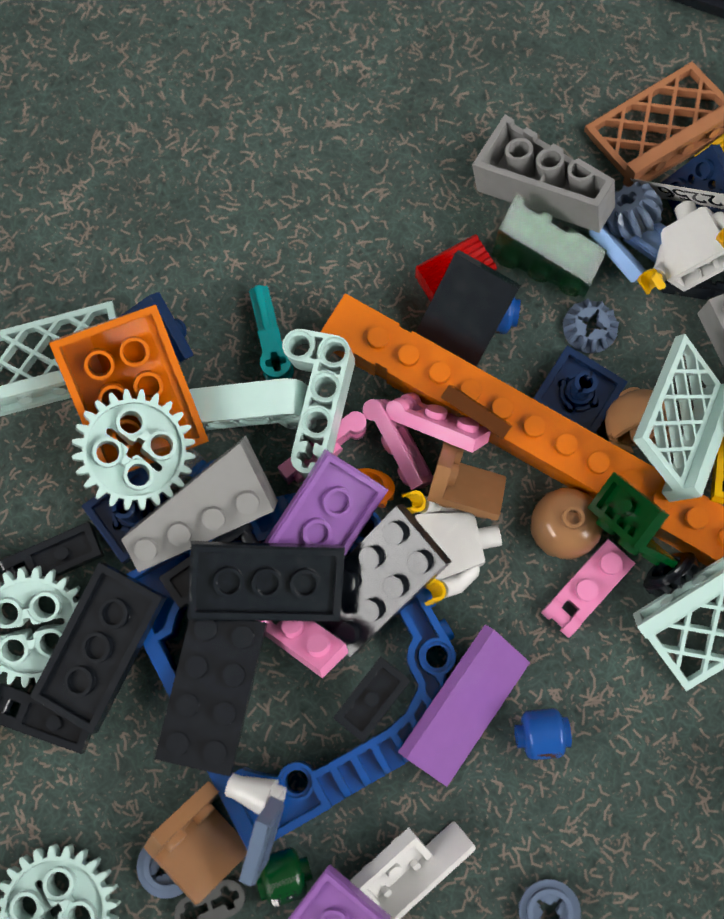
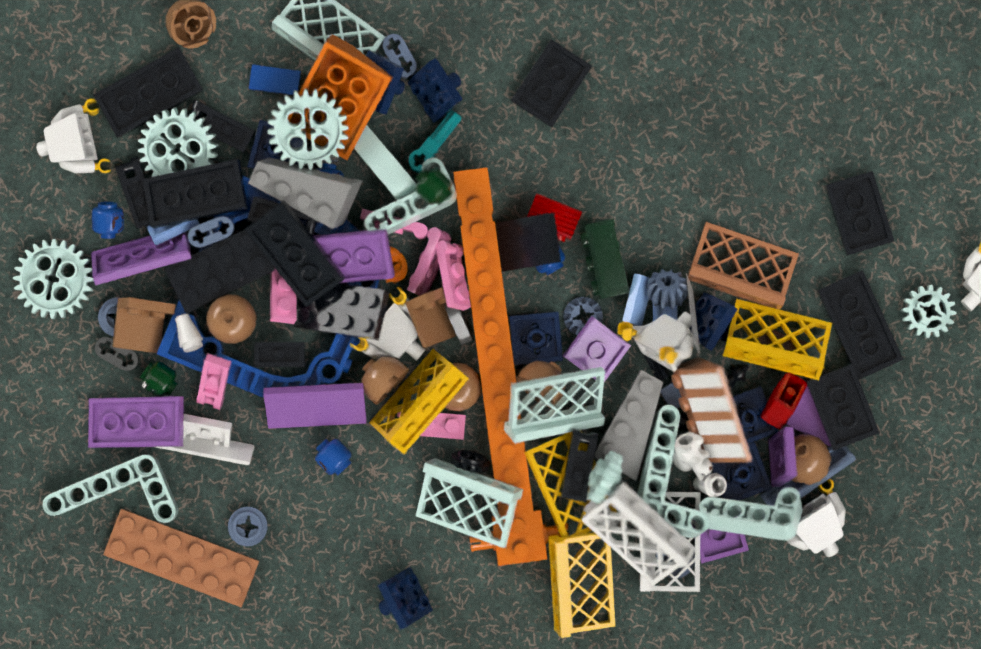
camera: 45 degrees right, 10 degrees up
(42, 781) = (107, 219): none -> blue head
(50, 458) = (274, 80): none -> blue tile
(115, 777) = (137, 257): none -> medium lavender tile
(116, 719) = (167, 232): none -> light blue tile
(140, 292) = (404, 52): none -> sand blue beam
(150, 662) = (209, 226): none -> sand blue beam
(214, 280) = (436, 89): none -> dark blue plate
(261, 841) = (168, 354): sand blue tile -> none
(281, 724) = (231, 319): none -> medium nougat cylinder
(308, 169) = (551, 83): none -> black plate
(320, 352) = (433, 186): none -> dark green head
(339, 808) = (213, 381): none -> bright pink plate
(476, 411) = (472, 292): reddish brown tile -> none
(493, 597) = (382, 377): none -> medium nougat cylinder
(495, 462) = (459, 324): none -> beam
(544, 176) = (642, 217): light grey wedge -> none
(573, 571) = (429, 402): none -> yellow fence
(633, 517) = (476, 418): dark green bracket -> none
(640, 336) = (596, 348): none -> tile

